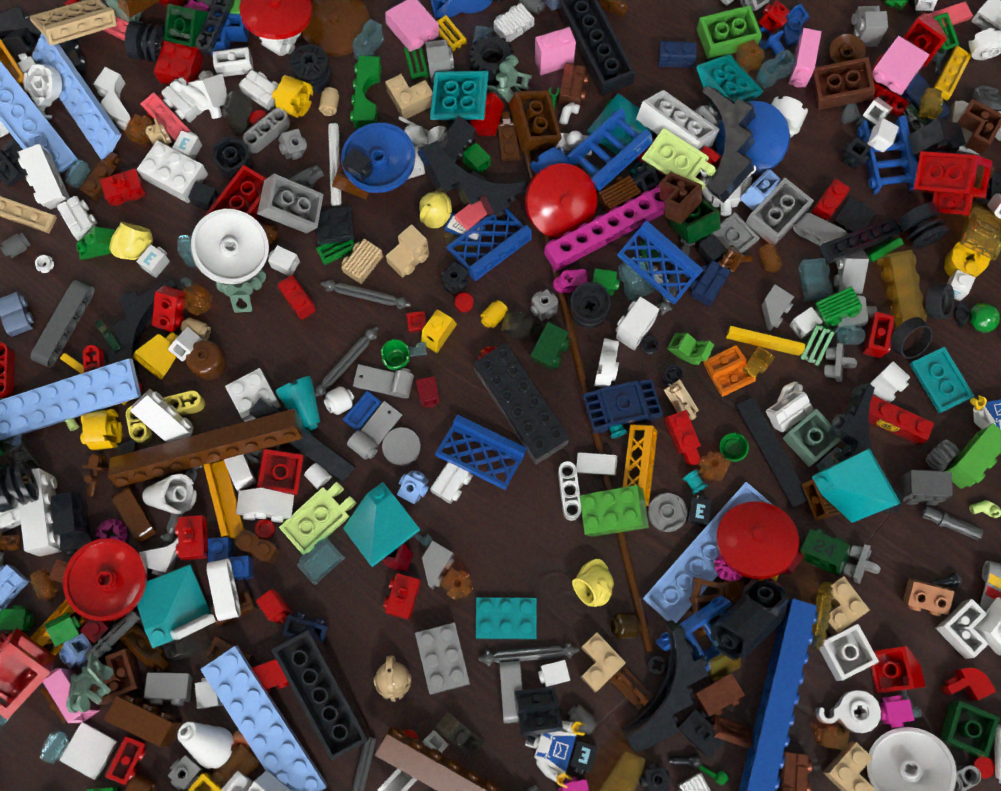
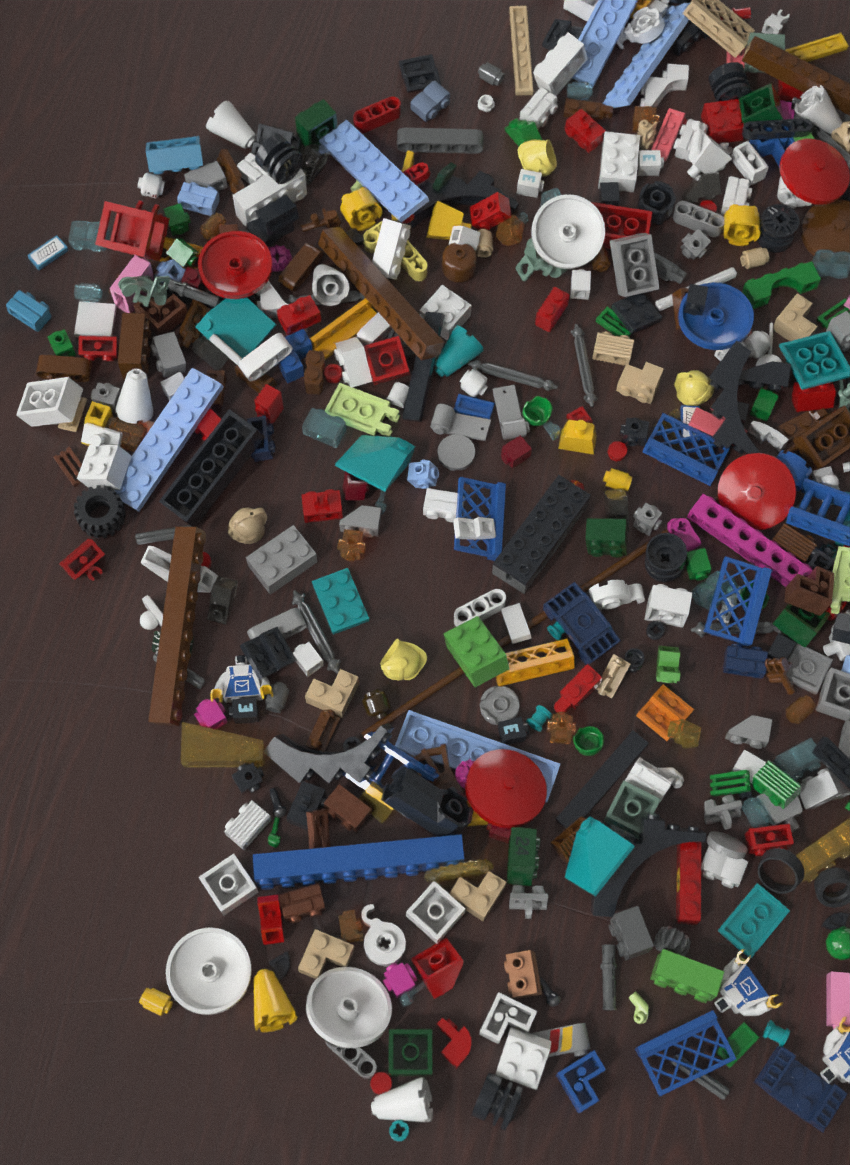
camera: 65 degrees right, 5 degrees down
(493, 461) = (474, 528): none -> white slope
(503, 171) = (764, 432): none -> white slope
(765, 341) = (711, 733): yellow tile -> none
(872, 371) = (723, 842): none -> light grey tile

